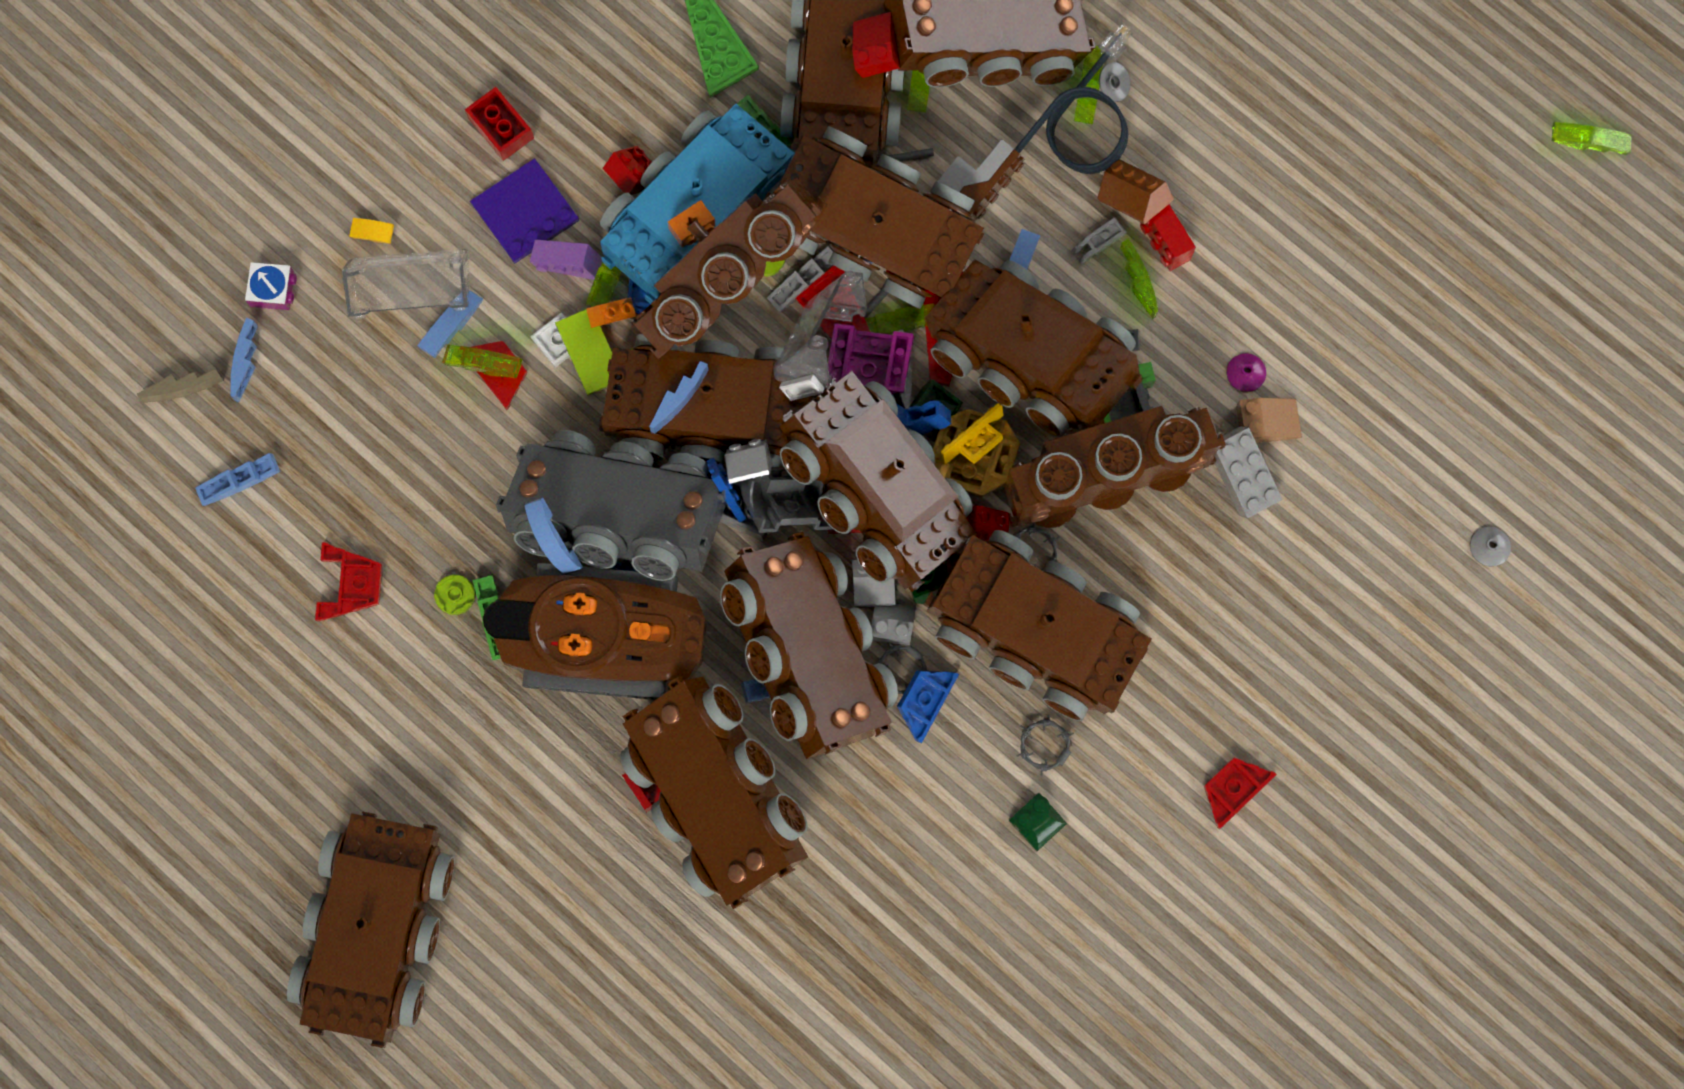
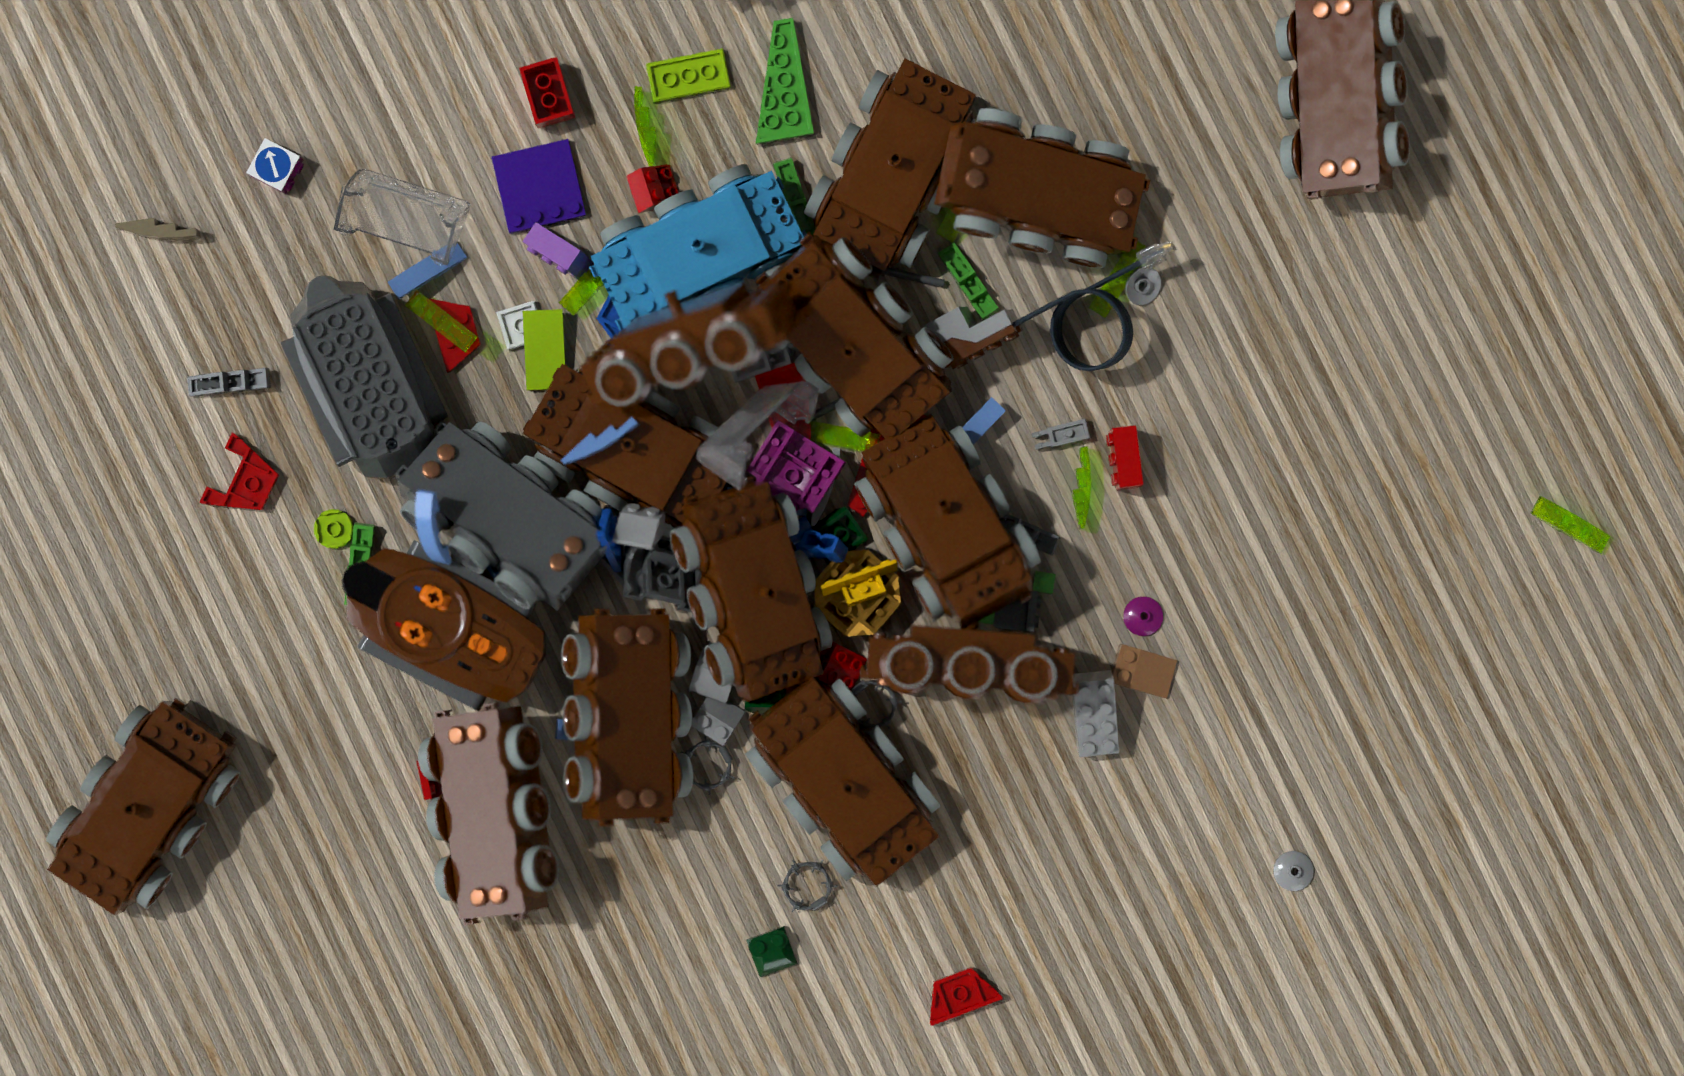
camera: 25 degrees right, 10 degrees up
(237, 480) = (178, 340): medium blue slope -> none
(242, 366) = (220, 235): medium blue slope -> none
(300, 499) = (228, 382): none -> dark grey slope
(371, 230) = (389, 149): yellow slope -> none
(427, 438) = (362, 376): none -> dark grey piece
(604, 125) = (646, 133): none -> clear neon green slope
(611, 312) = (577, 323): orange brick -> none
(622, 63) = (688, 75): none -> lime tile
(680, 223) = (685, 271): orange brick -> none
(802, 387) = (716, 478): white tile -> none
(874, 45) = (921, 171): red slope -> none
(924, 700) = (716, 801): blue wing -> none
(953, 140) = (968, 281): none -> bright green slope
(1134, 191) = (1109, 406): dark orange slope -> none

